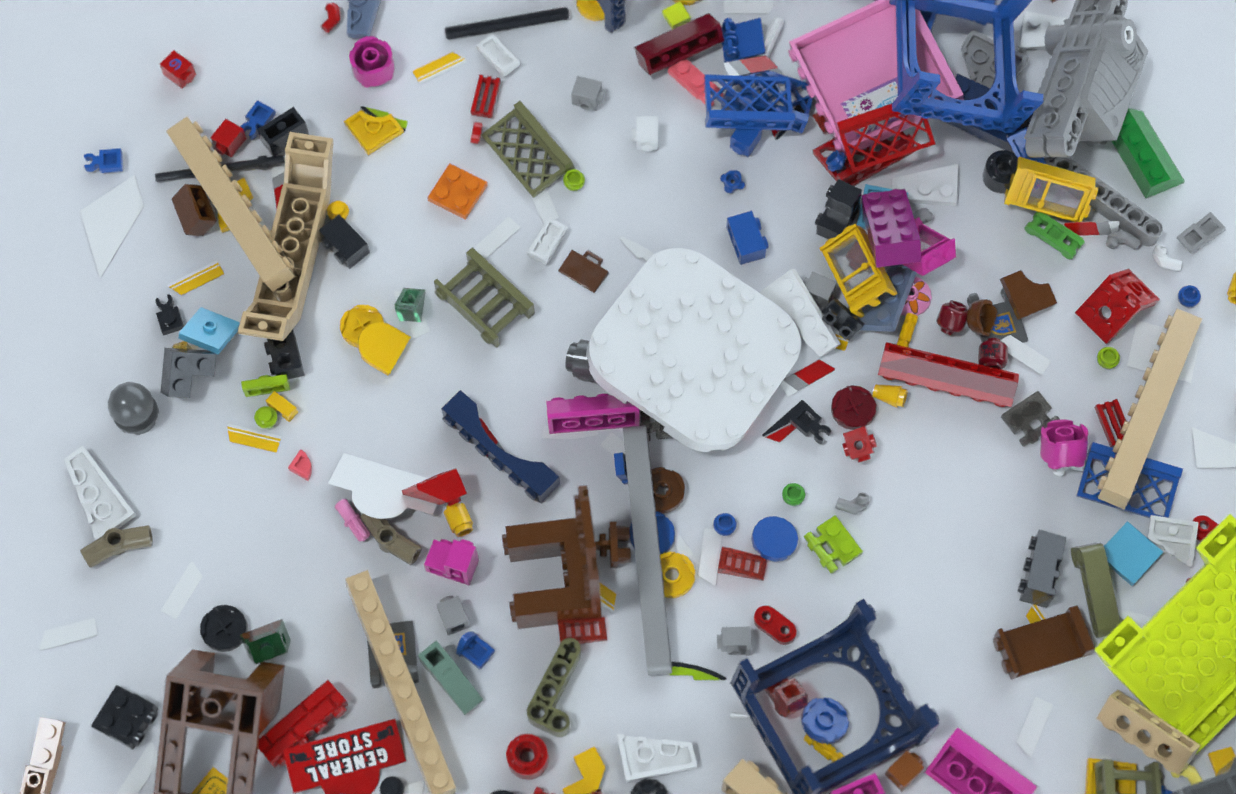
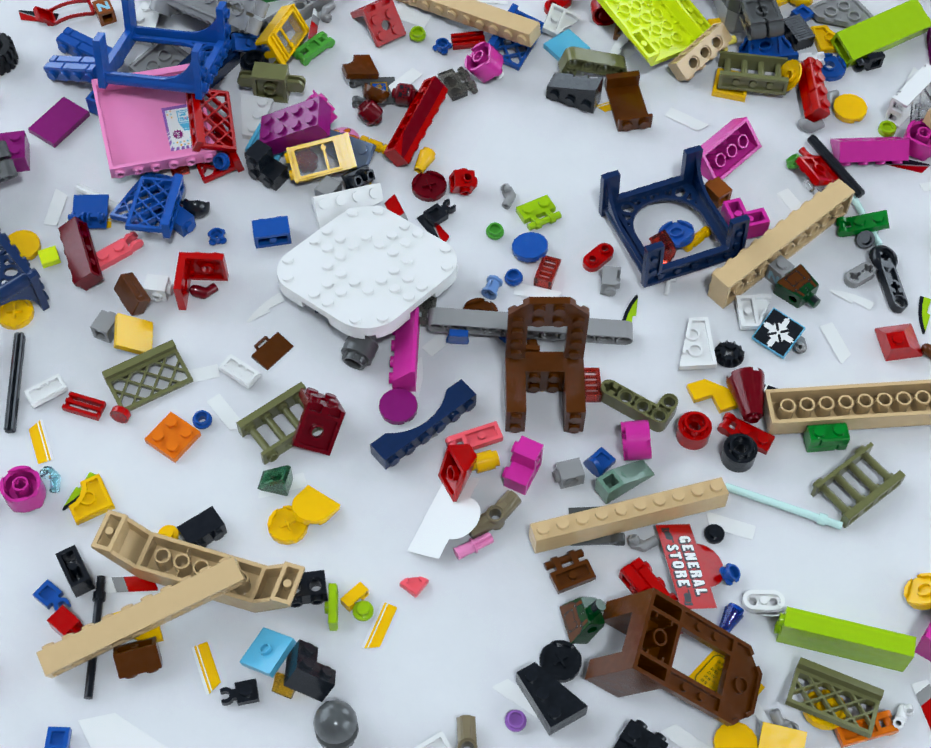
camera: 85 degrees left, 10 degrees down
(152, 587) = (515, 720): none -> medium lavender plate
(175, 616) = (549, 698): none -> black wedge
(324, 632) = (571, 576): none -> reddish brown plate
(371, 705) = (642, 545): none -> light grey arm
(395, 88) = (50, 473): none -> clear light blue arm
(481, 210) = (199, 415): none -> blue plate
(487, 329) = (322, 412): none -> dark red bracket
(488, 505) = (478, 437): none -> coral plate
(500, 686) = (636, 440): none -> dark pink brick
(524, 416) = (398, 406): none -> magenta tile
(574, 180) = (186, 346): lime plate -> none
(576, 122) = (132, 334): none -> yellow tile
(630, 108) = (132, 294): none -> reddish brown piece
(650, 182) = (203, 292): none -> dark red arm
(657, 156) = (197, 267): none -> red bracket
(704, 499) = (491, 287): none -> medium blue bush
(749, 66) = (118, 206): sticker -> none
(767, 148) = (196, 207): none -> black hair
(974, 192) = (271, 81): none -> olive brick
(1096, 386) = (442, 46): none -> blue plate

